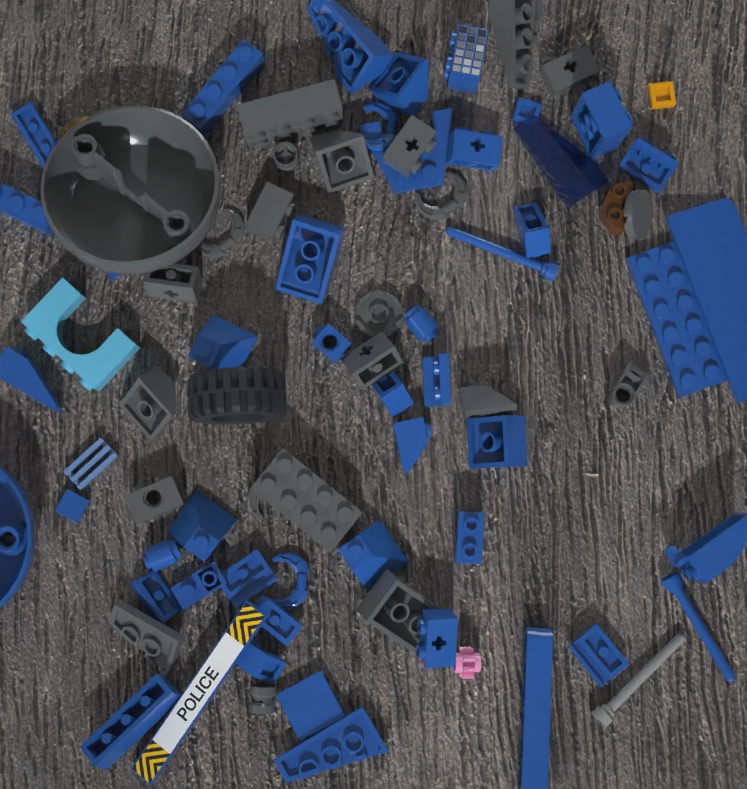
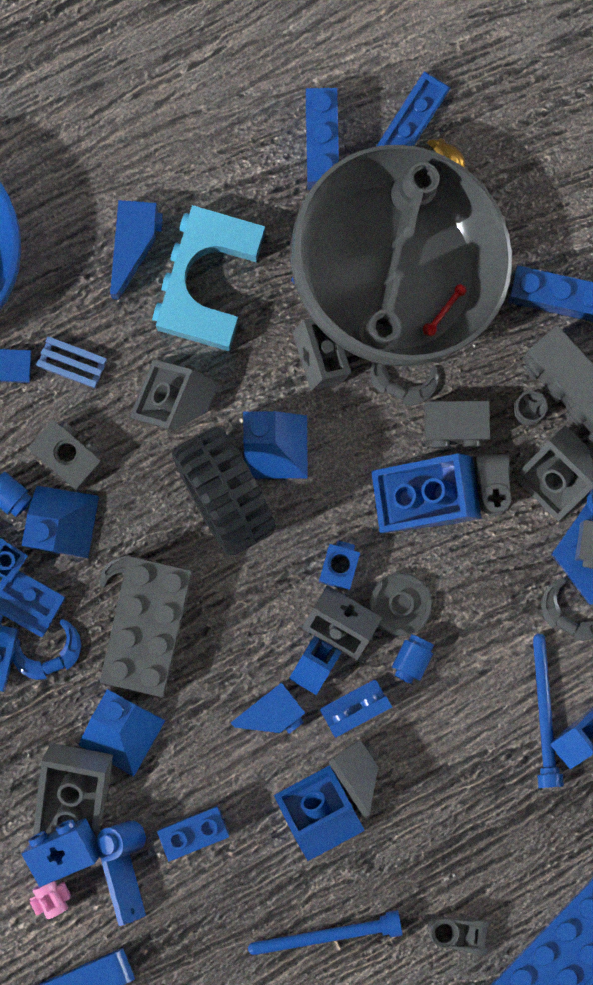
camera: 65 degrees right, 0 degrees up
(195, 196) = (430, 328): none -> red hinge
(322, 207) = (493, 477): none -> dark grey piece
(453, 599) = (114, 848): none -> blue door
(597, 432) = (388, 925): none -> blue piece

